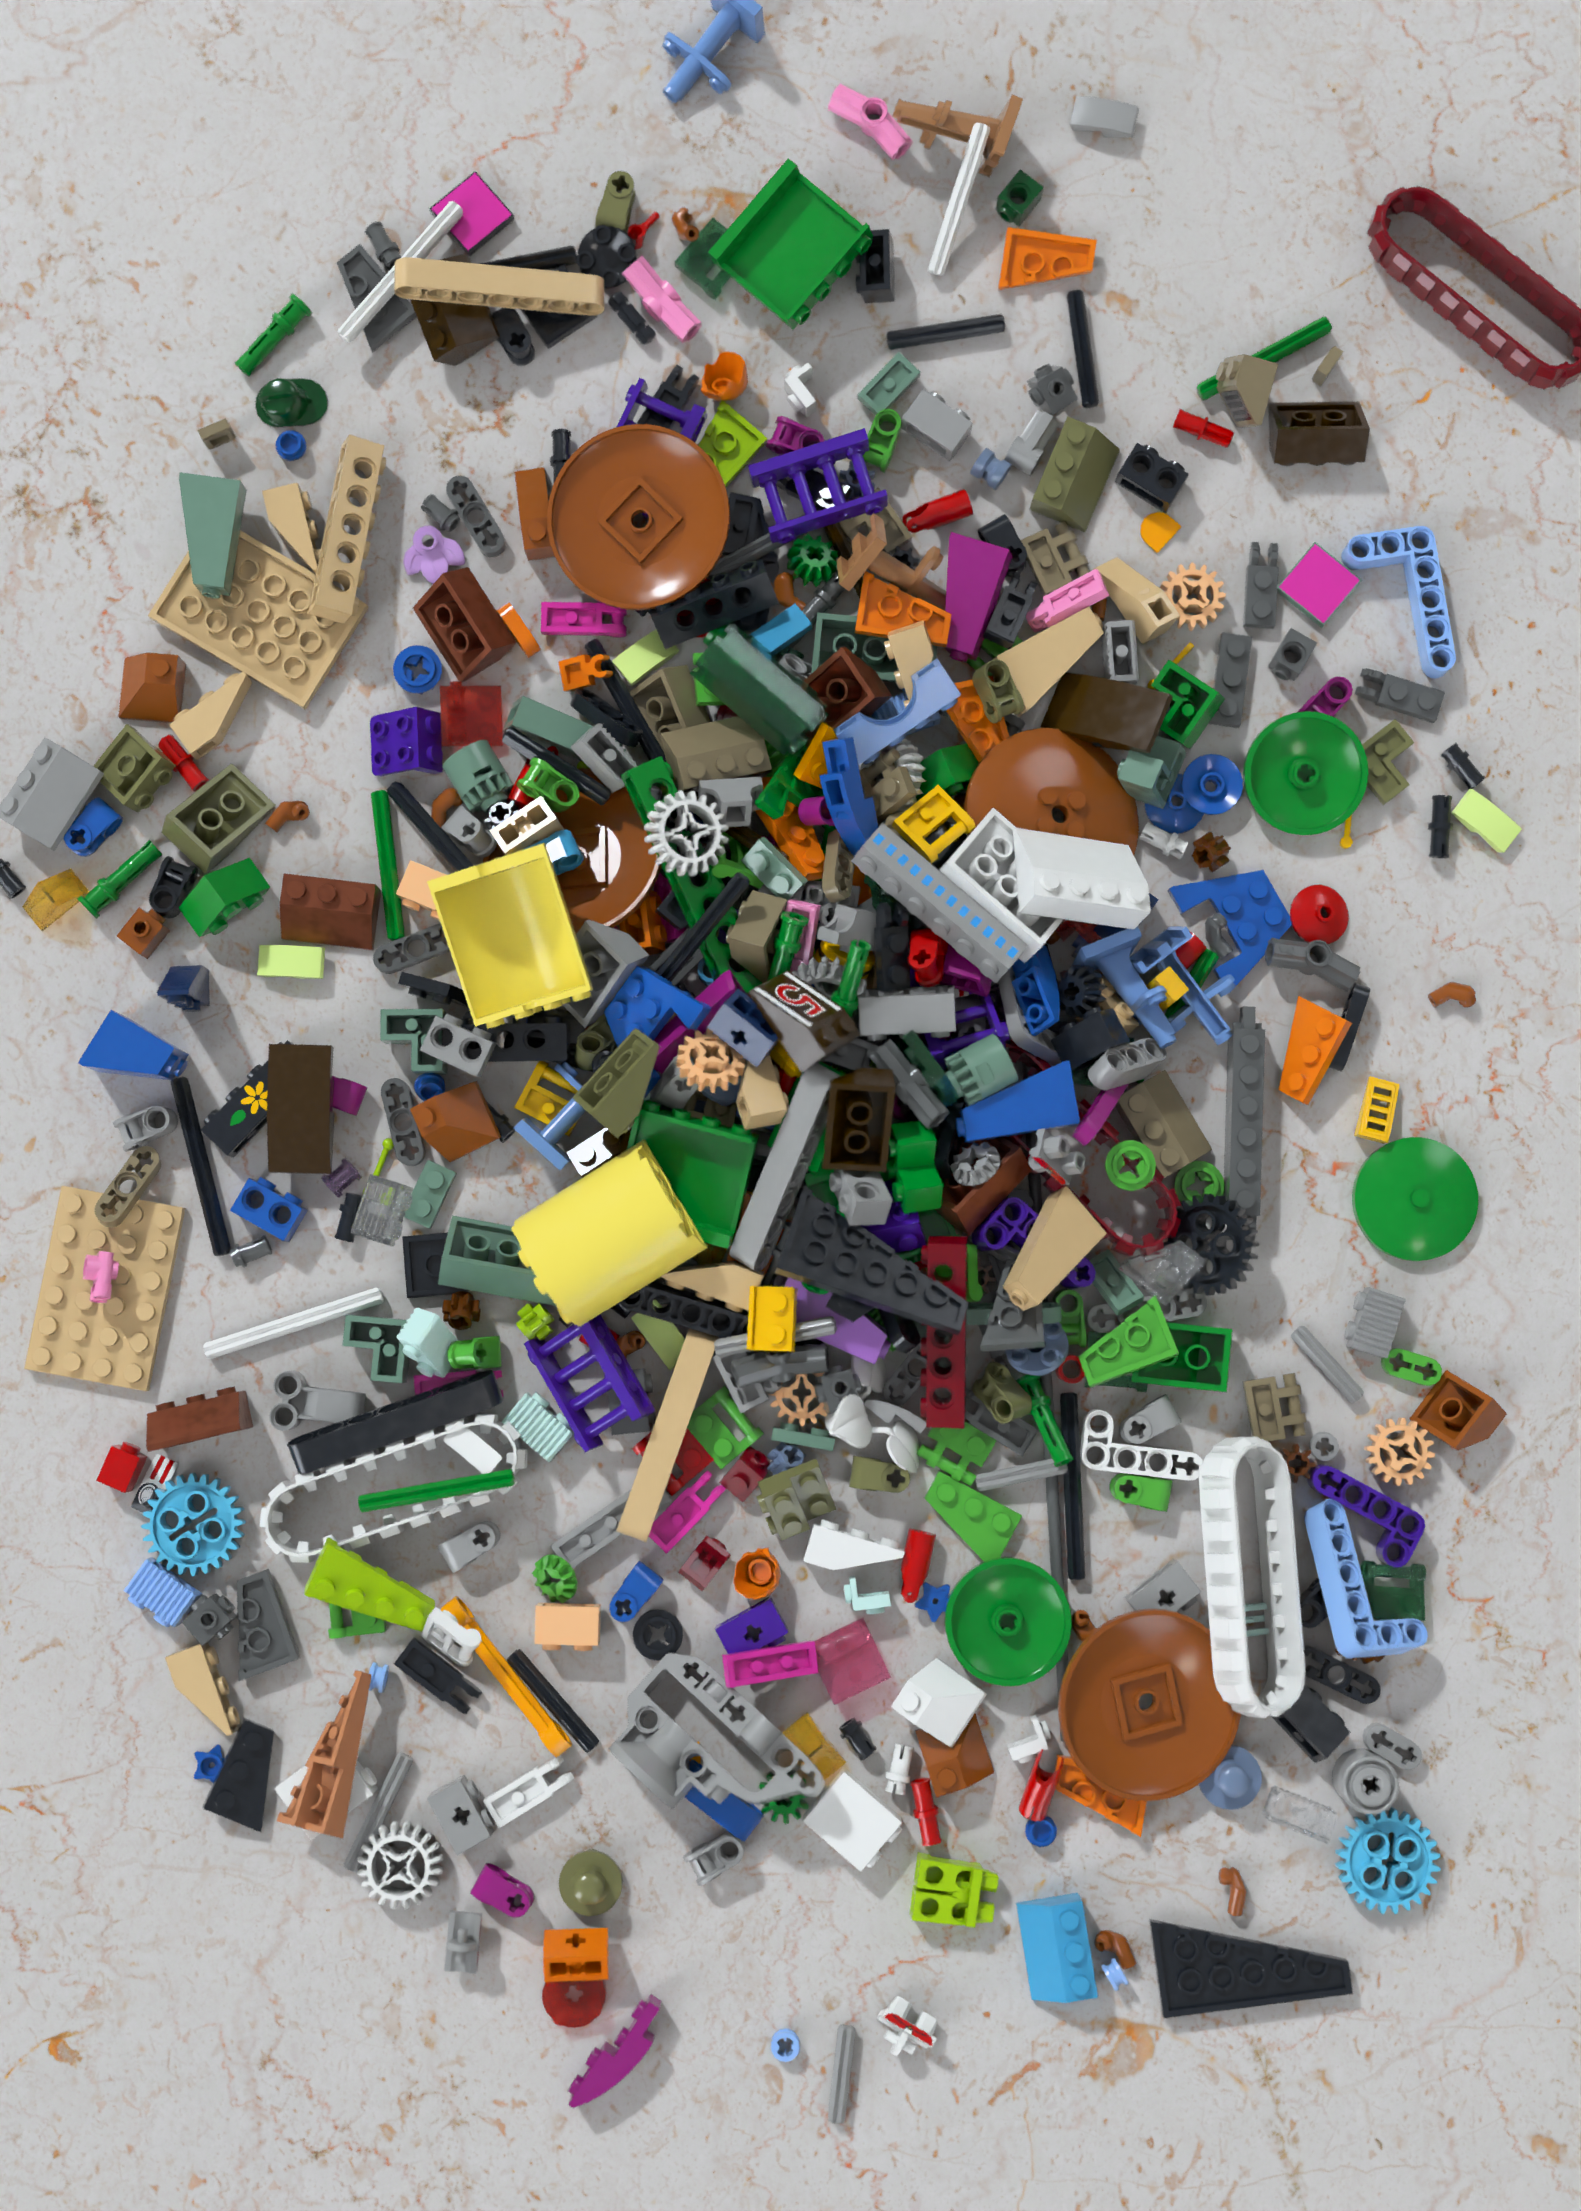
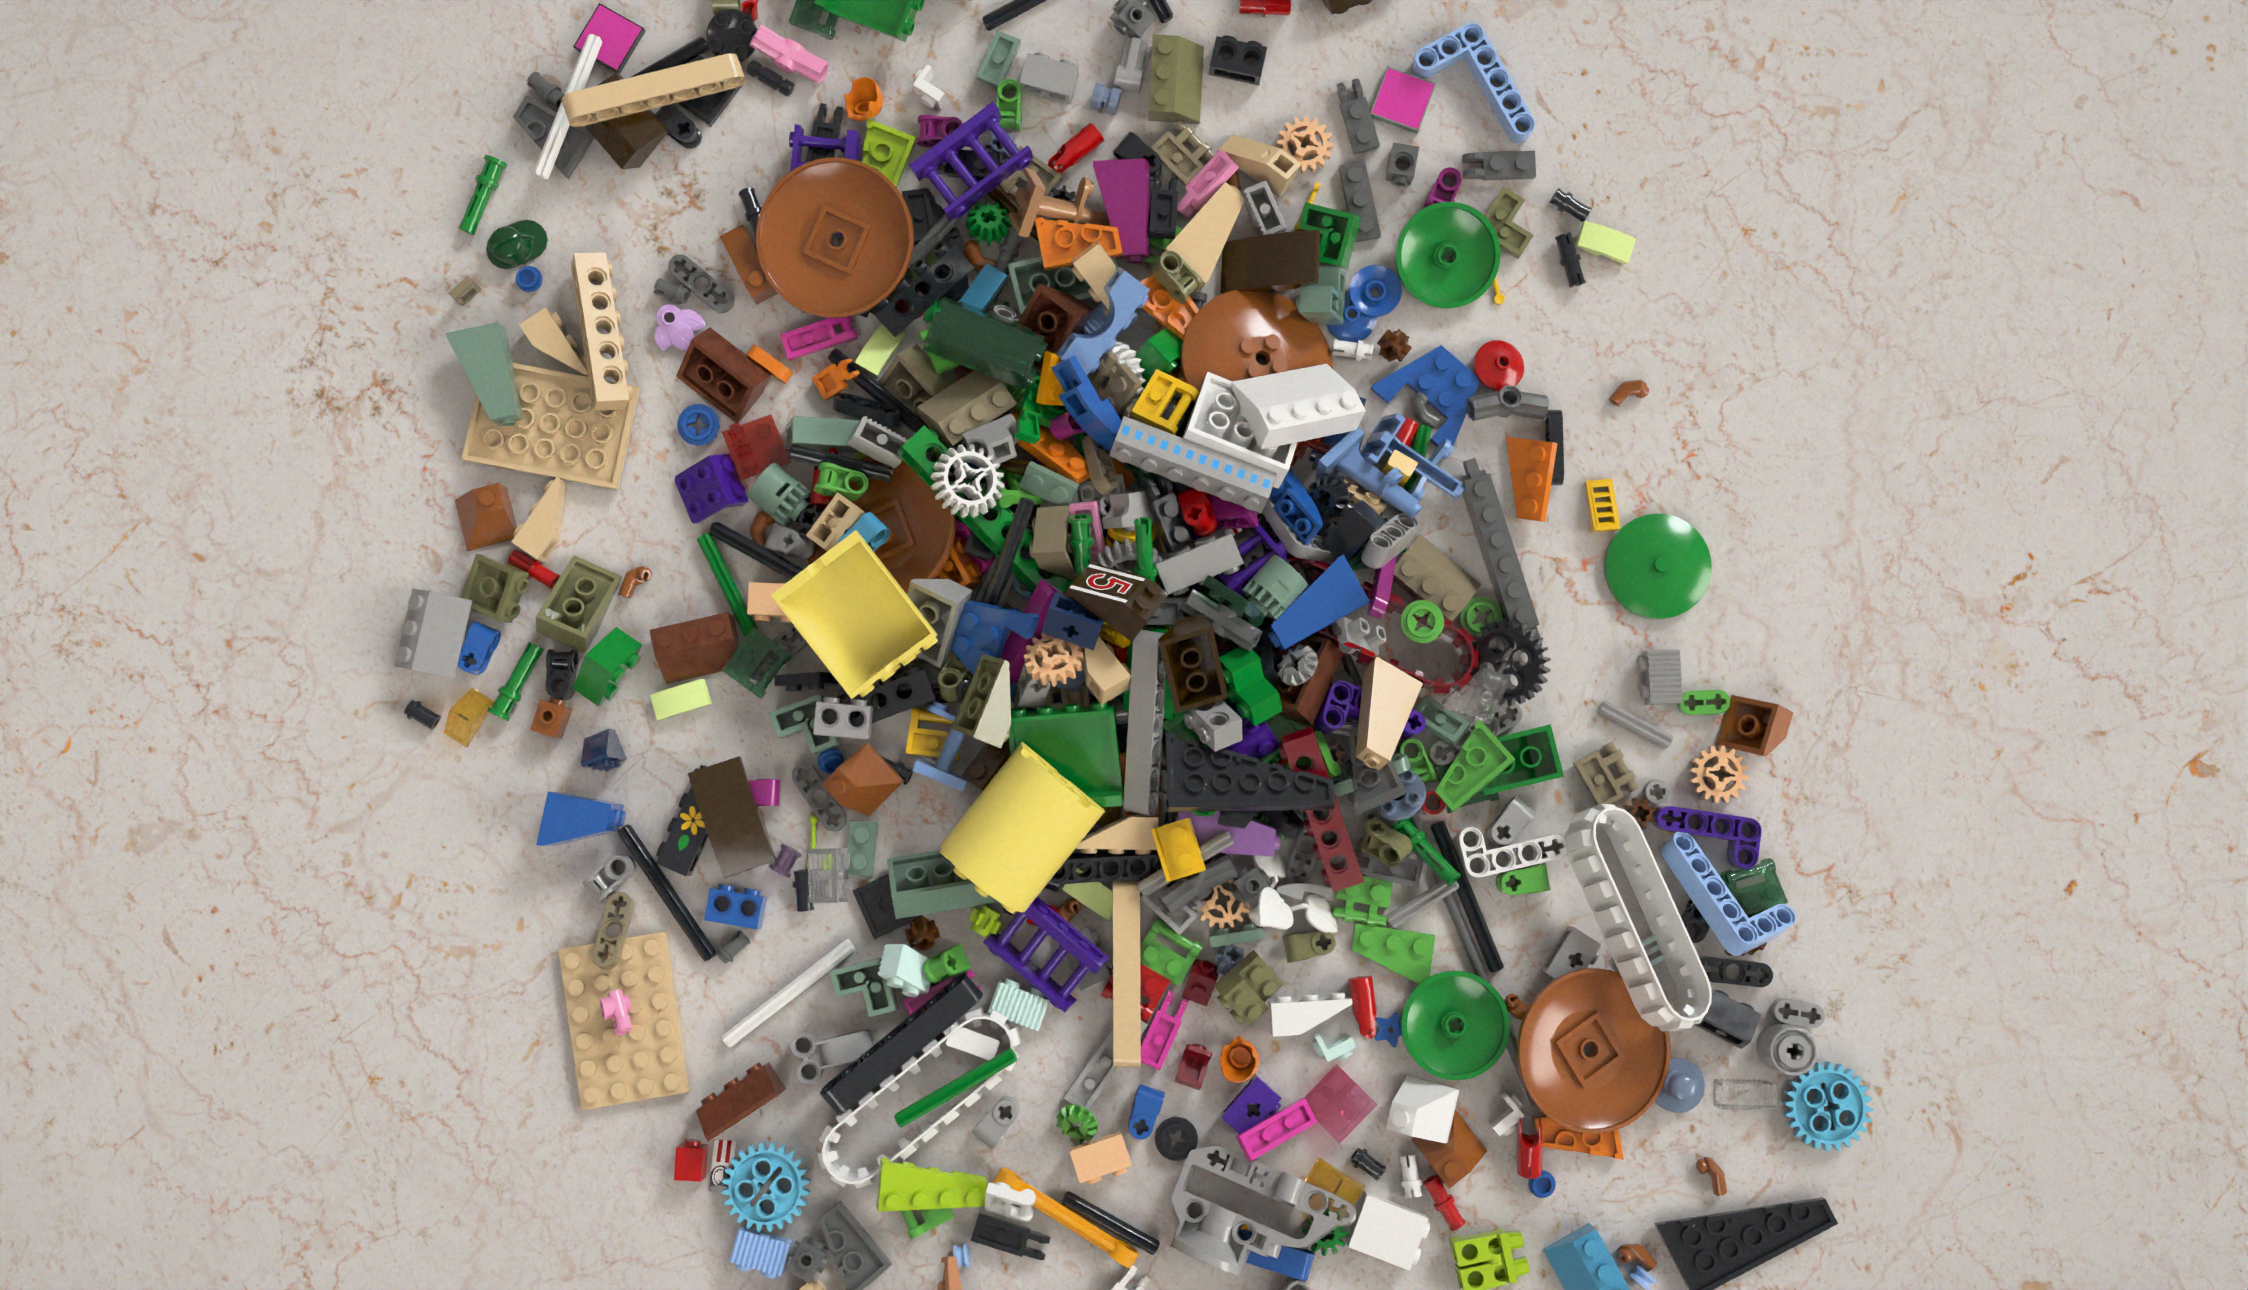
camera: 20 degrees left, 0 degrees up
(381, 943) = (750, 657): none -> clear green plate
(1158, 530) = (1258, 100): light orange piece -> none

